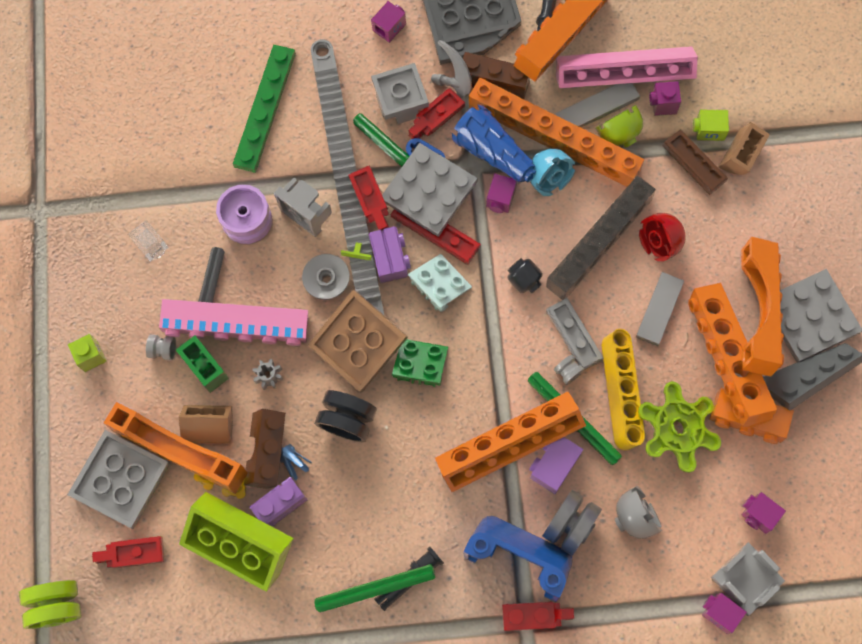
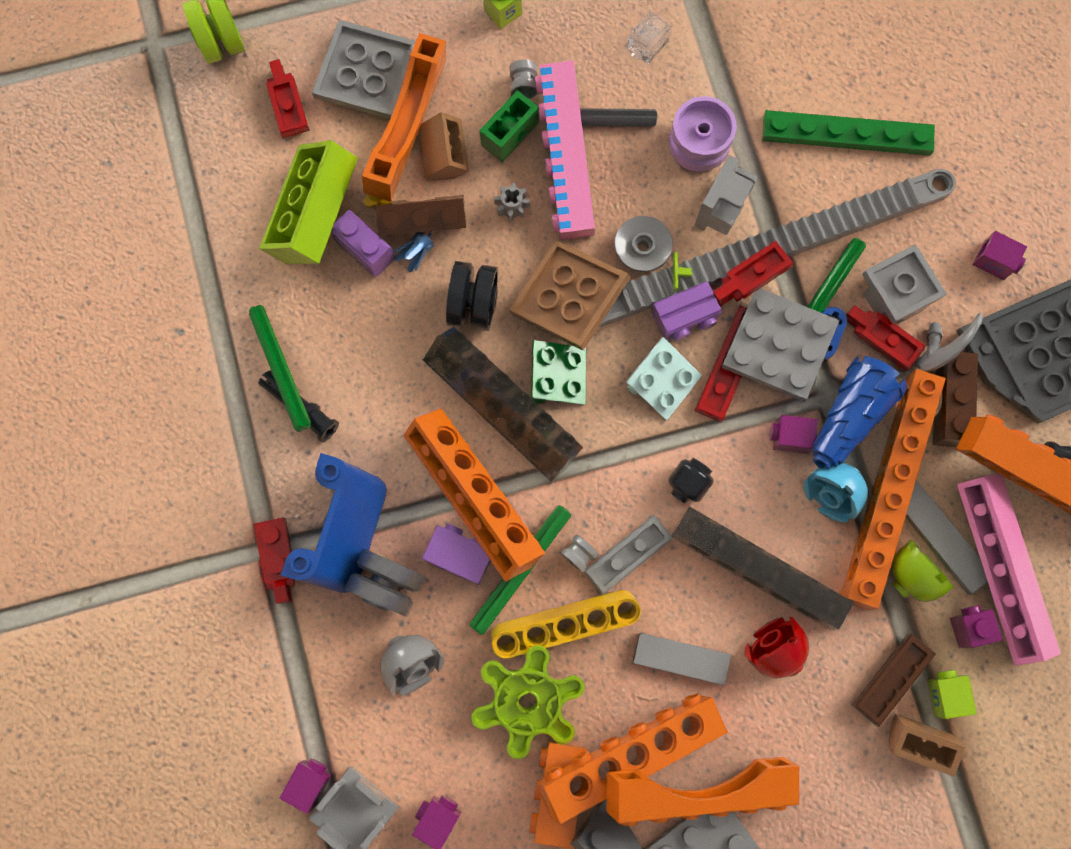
camera: 75 degrees right, 5 degrees up
(438, 408) = (502, 403): none -> clear smoke brick

